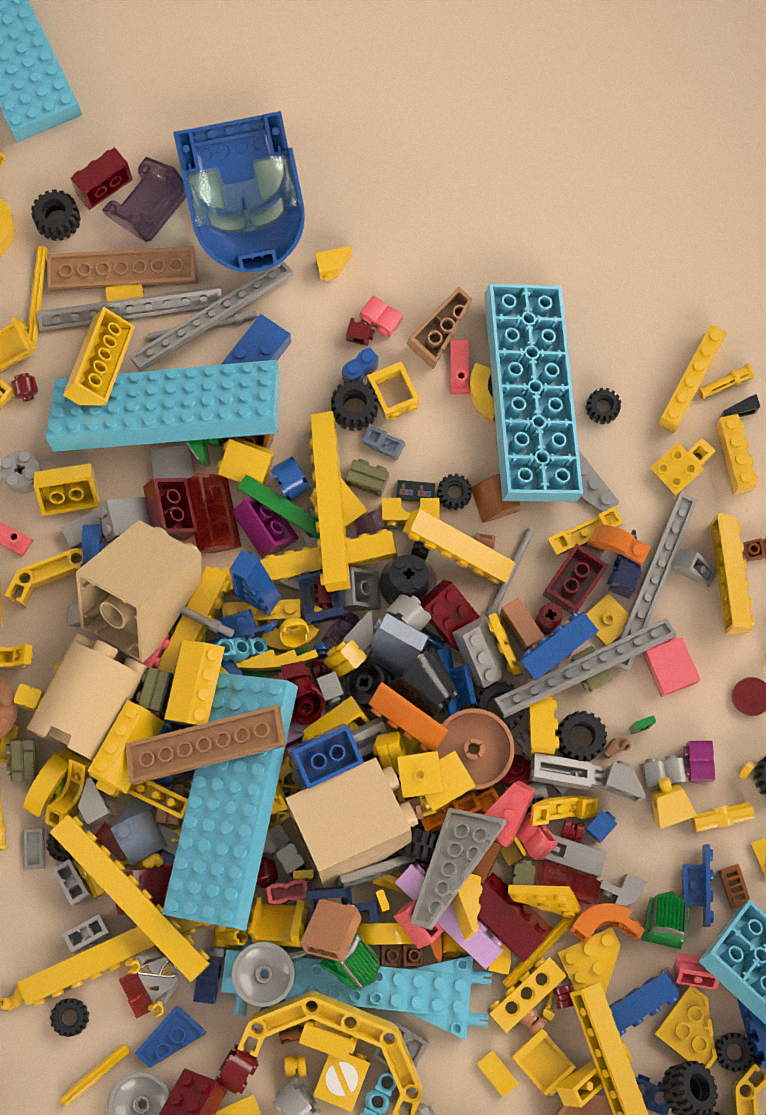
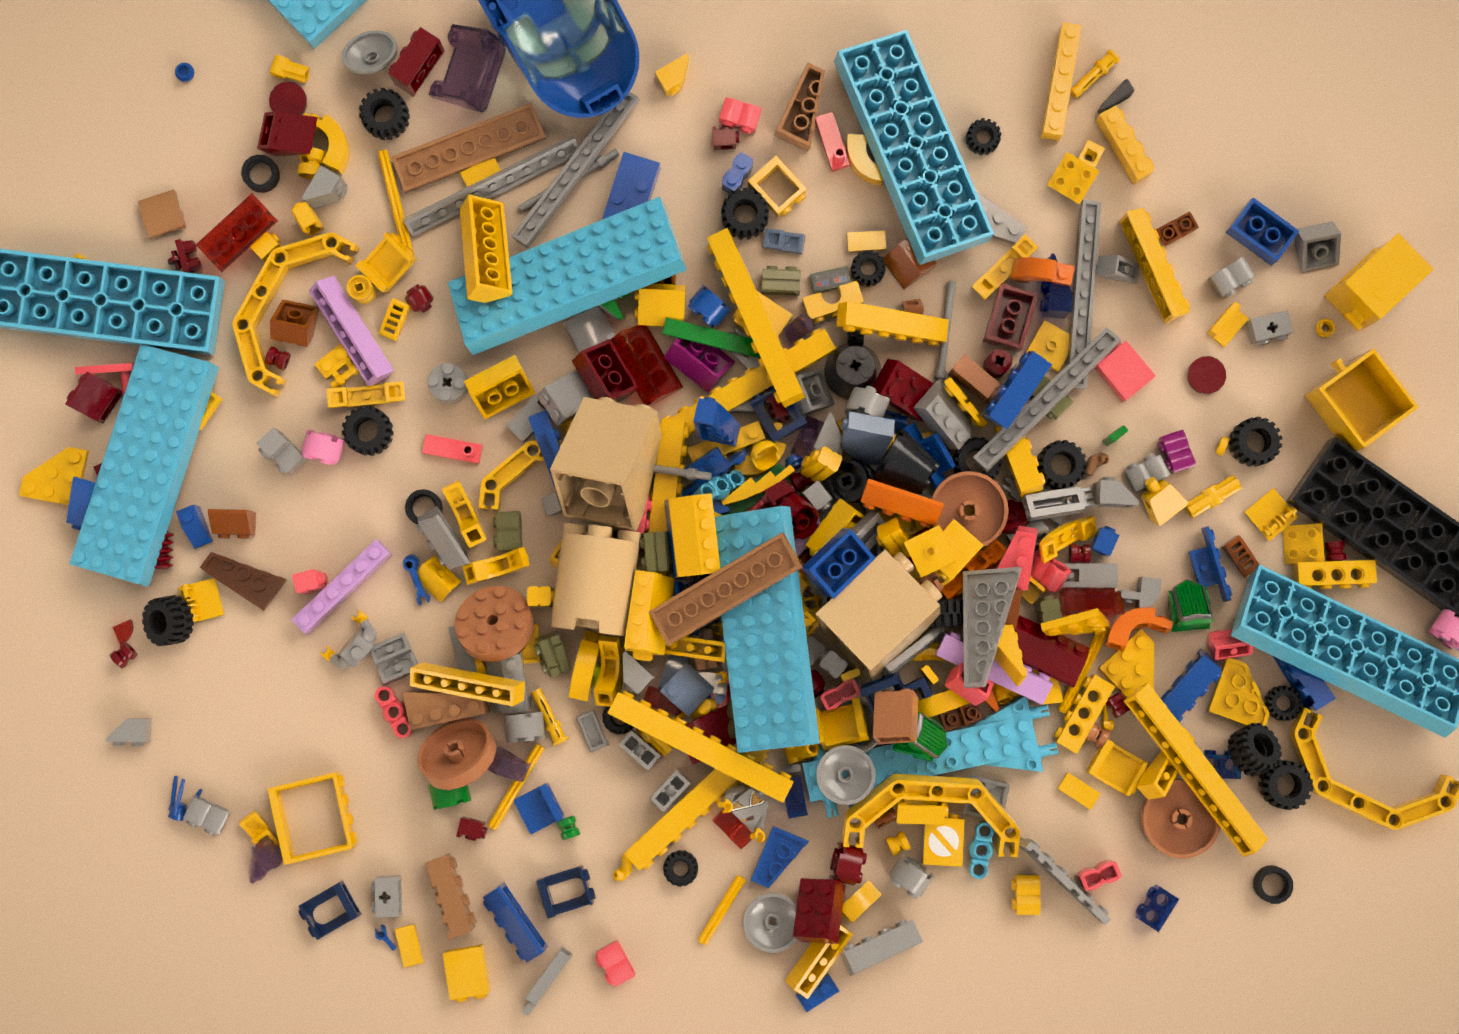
camera: 15 degrees left, 10 degrees up
(25, 627) = (508, 530): none -> olive brick
(63, 158) = (369, 52): none -> light grey dish
(462, 466) = (866, 241): none -> yellow tile

